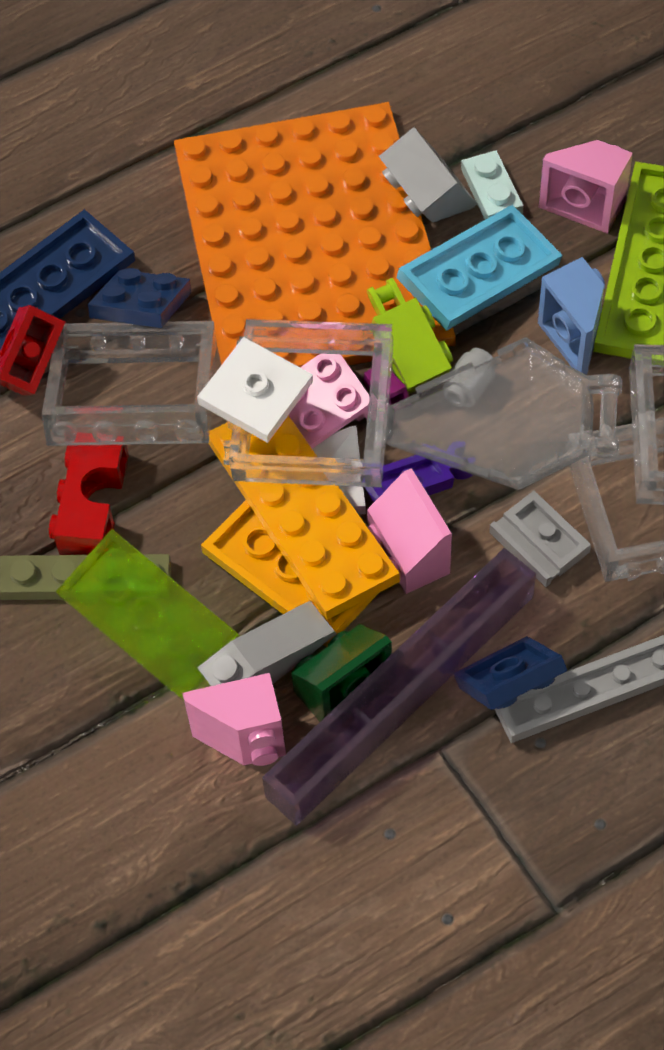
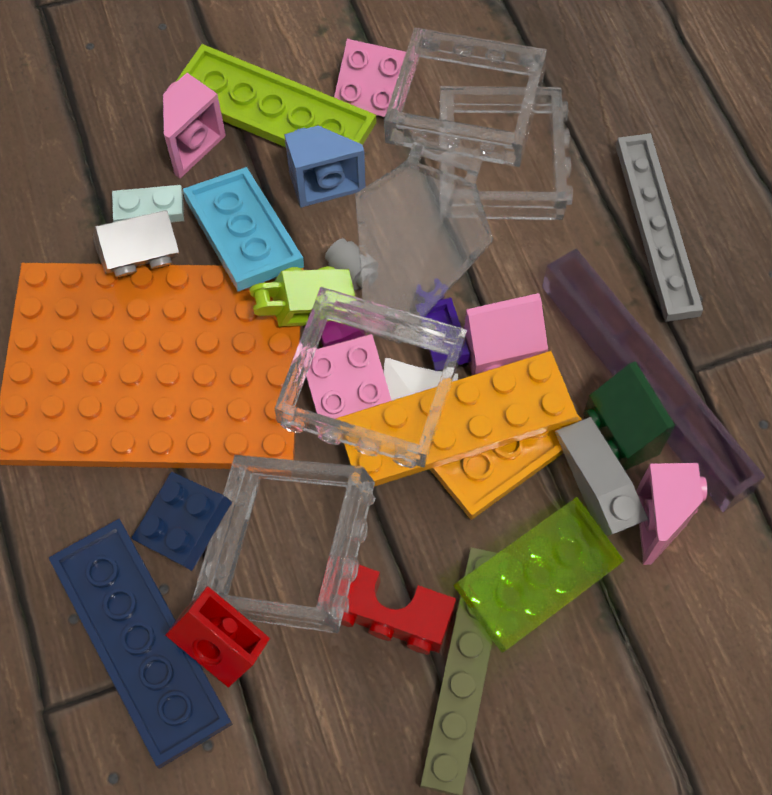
camera: 80 degrees left, 5 degrees up
(255, 389) = (360, 413): white plate -> none
(510, 673) = (654, 291): dark blue plate -> none
(540, 538) = (522, 250): light grey plate -> none

